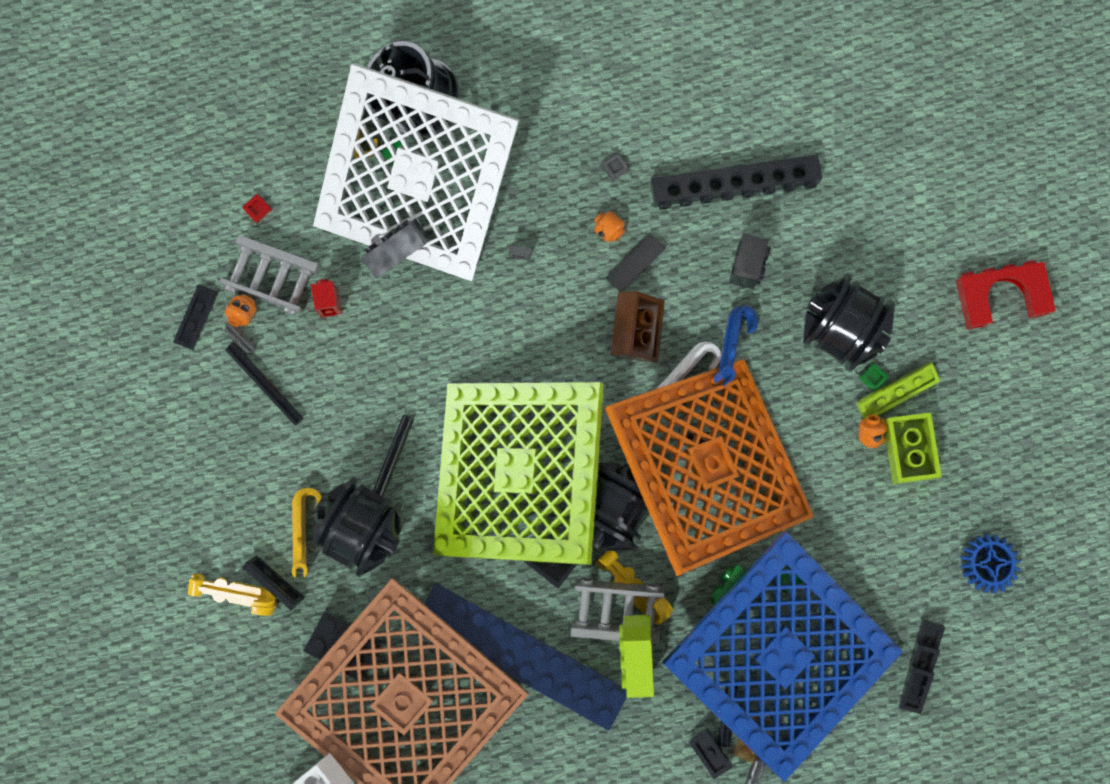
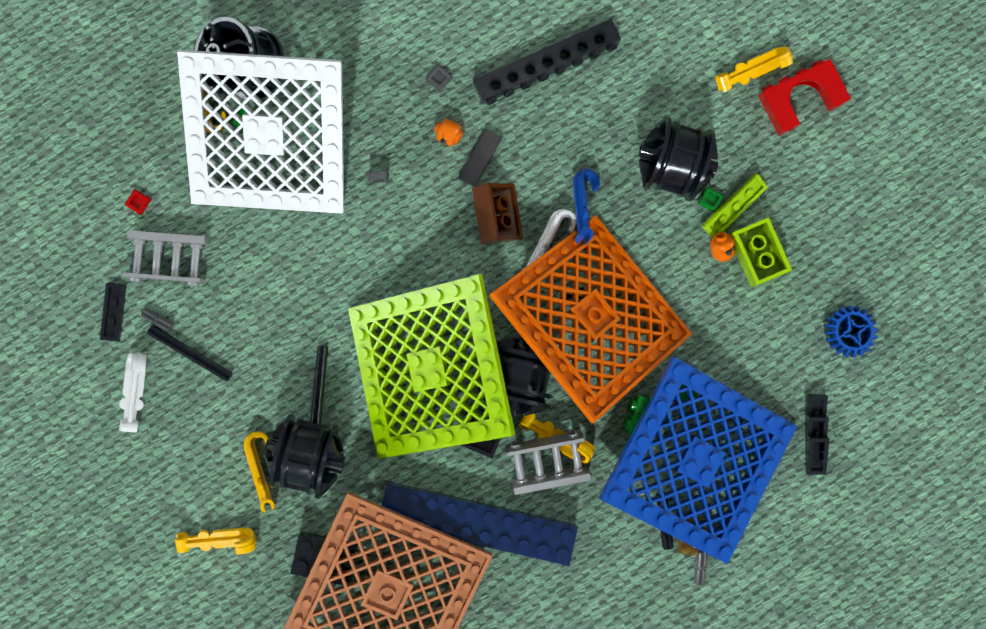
camera: 20 degrees left, 5 degrees up
(191, 406) = (132, 391): none -> white piece
(240, 310) = (149, 296): orange head -> none
(273, 582) = (248, 521): black tile -> none
(326, 298) = (220, 264): red brick -> none
(395, 247) = (267, 203): brick -> none
(637, 656) = (576, 497): lime brick -> none
(710, 753) = (659, 558): black plate -> none
(748, 262) = (577, 129): black brick -> none
(960, 249) = (755, 67): none -> yellow piece

